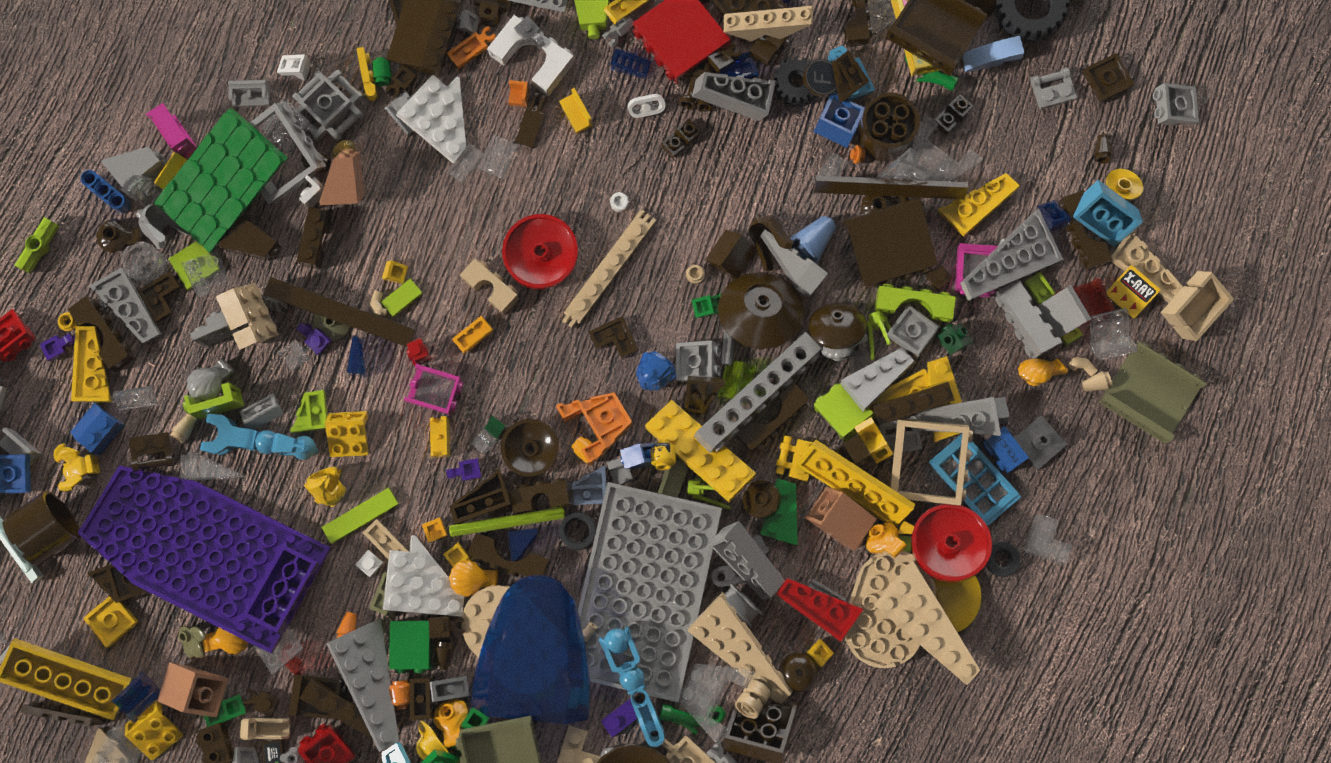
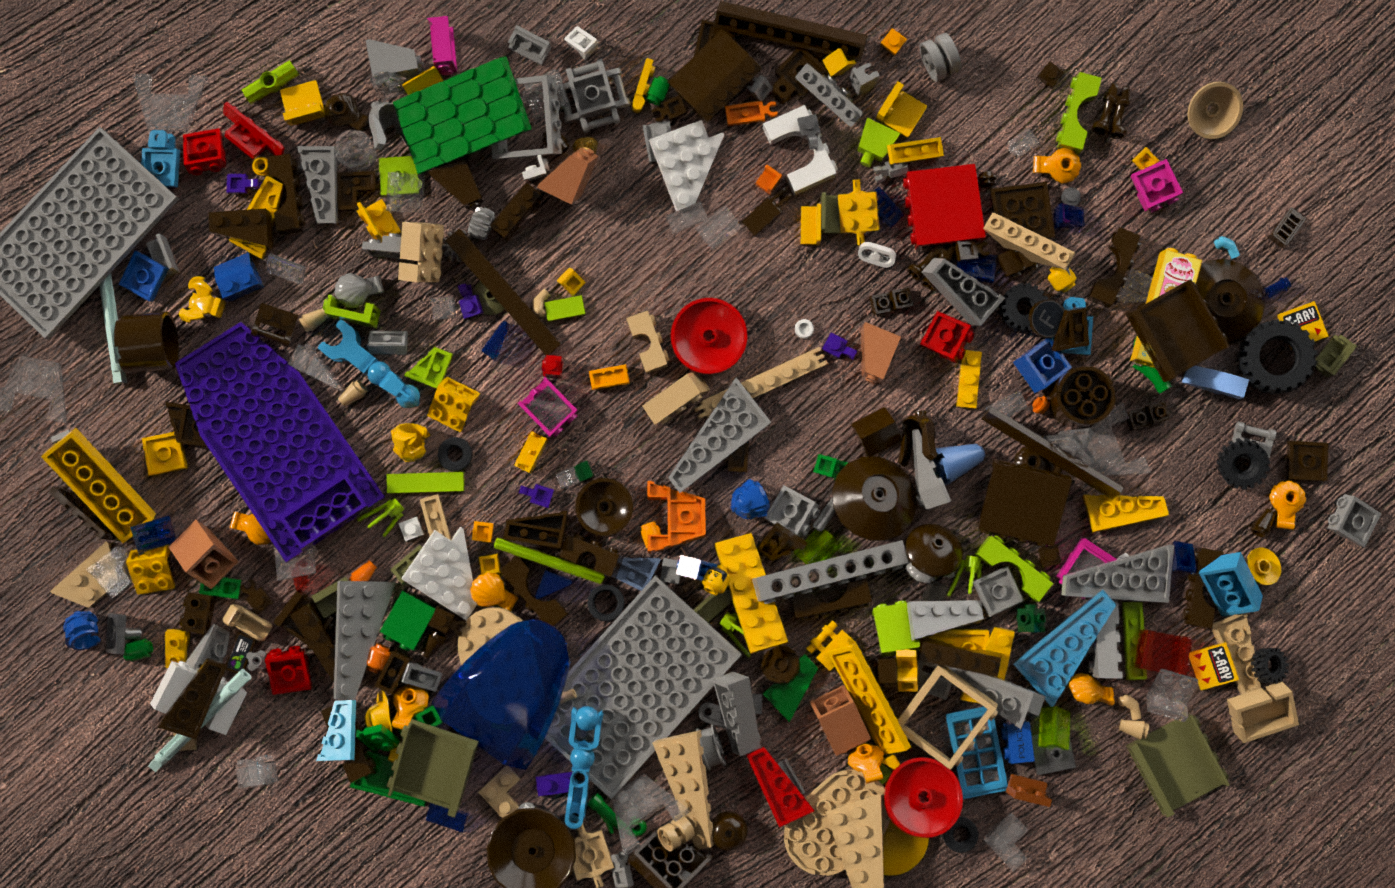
camera: 25 degrees right, 5 degrees up
(40, 300) = (248, 135): none -> red bracket
(75, 248) = (302, 103): none -> yellow bracket
(77, 379) = (246, 226): none -> dark brown wedge
(98, 188) = (350, 59): blue beam -> none
(191, 640) = (224, 510): olive plate -> none
(194, 310) = (378, 219): none -> yellow bracket
(253, 472) = (353, 393): none -> tan cone
(287, 265) = (480, 223): none -> light grey gear
(326, 668) = (327, 599): none -> olive panel
(341, 554) = (392, 508): none -> lime plant
(384, 480) = (467, 454): none -> black tyre
(540, 320) = (676, 398): none -> tan wedge
(587, 94) = (829, 214): none -> olive panel
(599, 324) = (727, 429): none -> light grey wing
(610, 78) = (858, 212): none -> yellow plate
(655, 201) = (836, 346): none -> dark purple plate
(692, 185) = (876, 352): none -> nougat slope
(695, 274) = (834, 432): tan plate -> none
(746, 141) = (947, 337): none -> red plate
(784, 167) = (969, 380): none -> yellow plate
(814, 39) = (1062, 279): none -> yellow head
(820, 652) = (756, 825): yellow tile -> none
(996, 353) = (1059, 653): none -> dark azure wing
(1028, 420) = (1054, 728): none -> clear neon green panel
(1038, 486) = (1028, 790): none -> dark orange bracket
(1064, 312) = (1139, 652): light grey tile -> none
(1069, 113) = (1249, 476): none -> black tyre
(1111, 119) = (1287, 500): none -> light orange animal
(1173, 269) = (1261, 665): none -> black tyre

